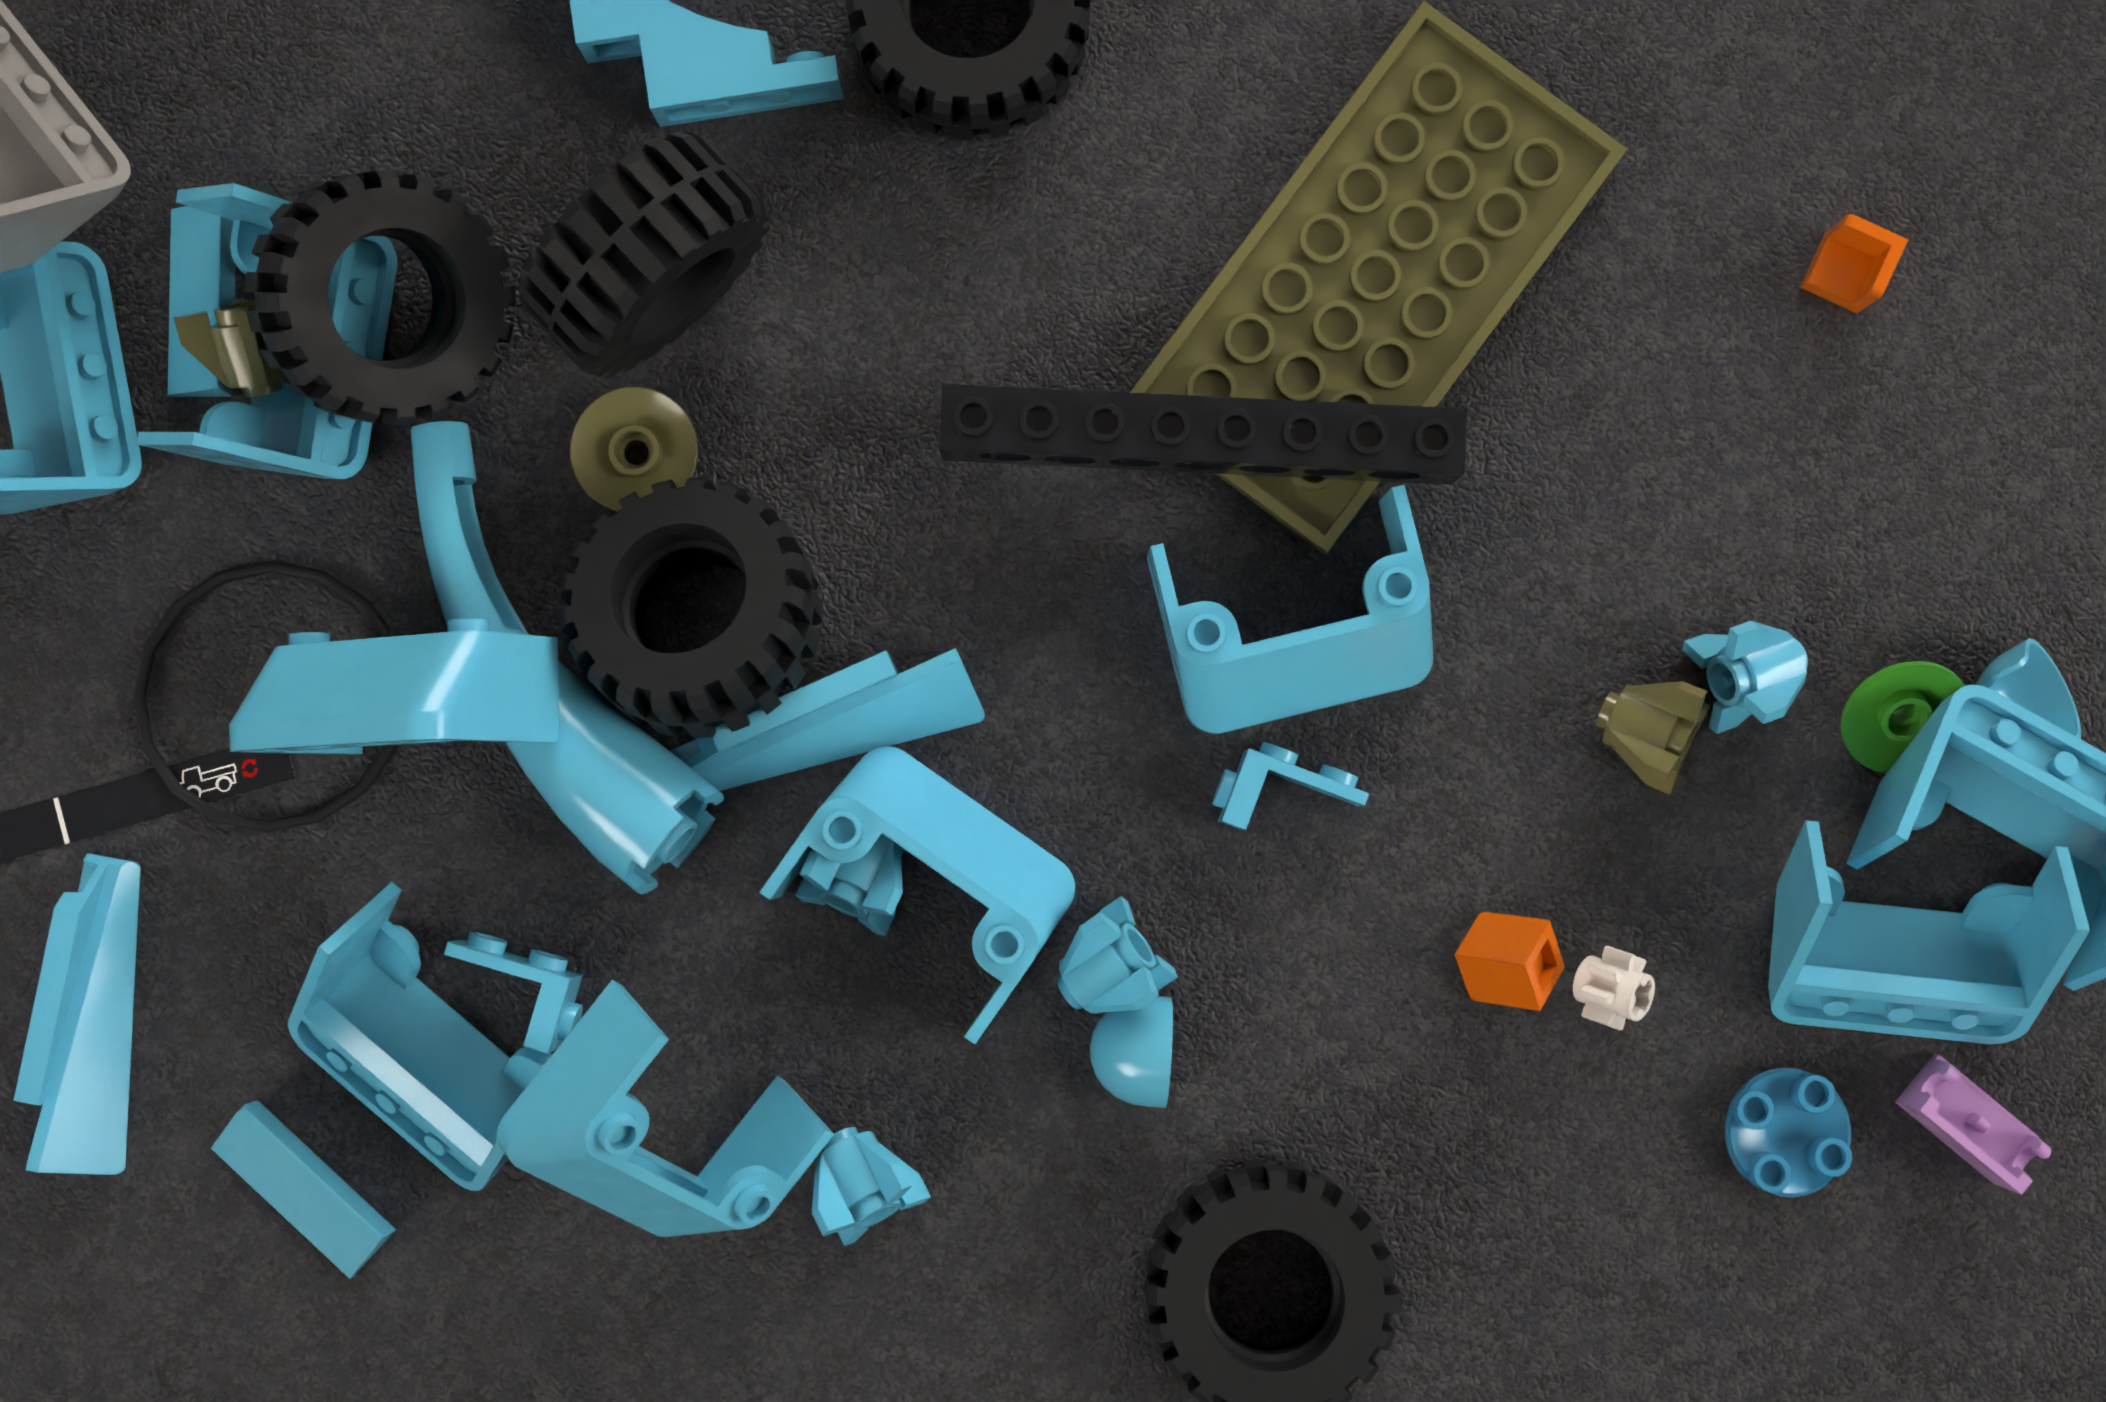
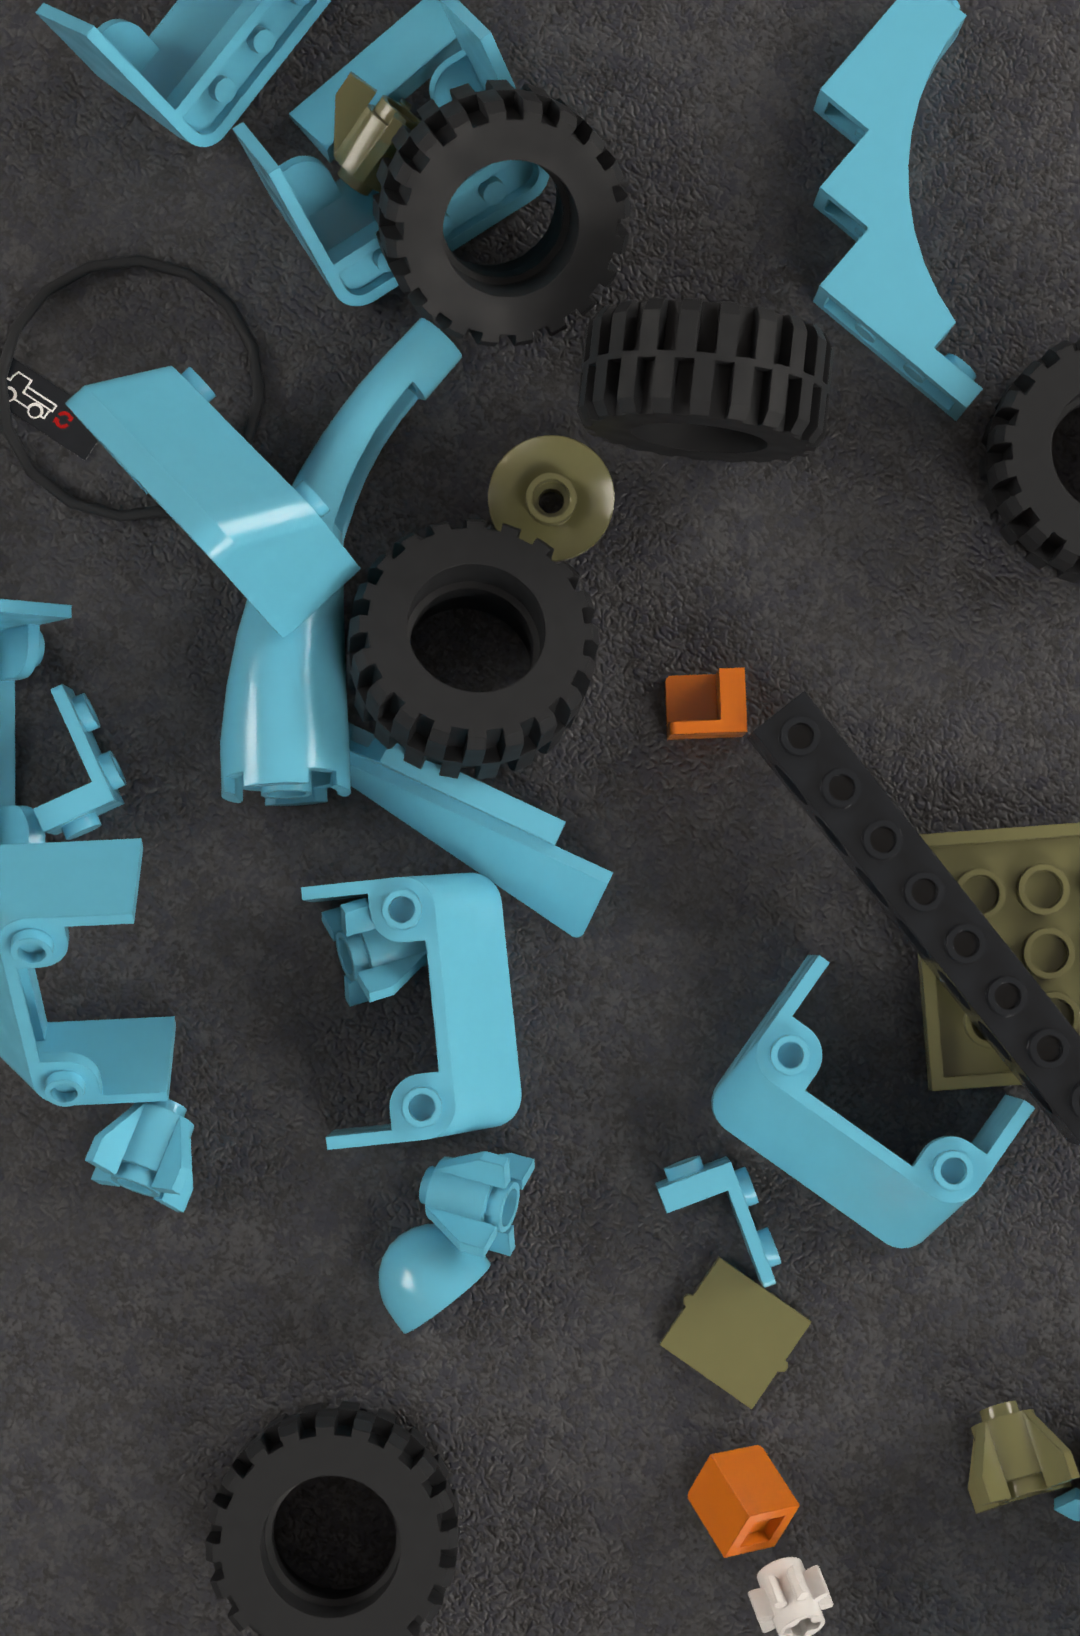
camera: 45 degrees right, 0 degrees up
(893, 469) = (706, 705): none -> orange panel
(1381, 857) = (735, 1332): none -> olive piece

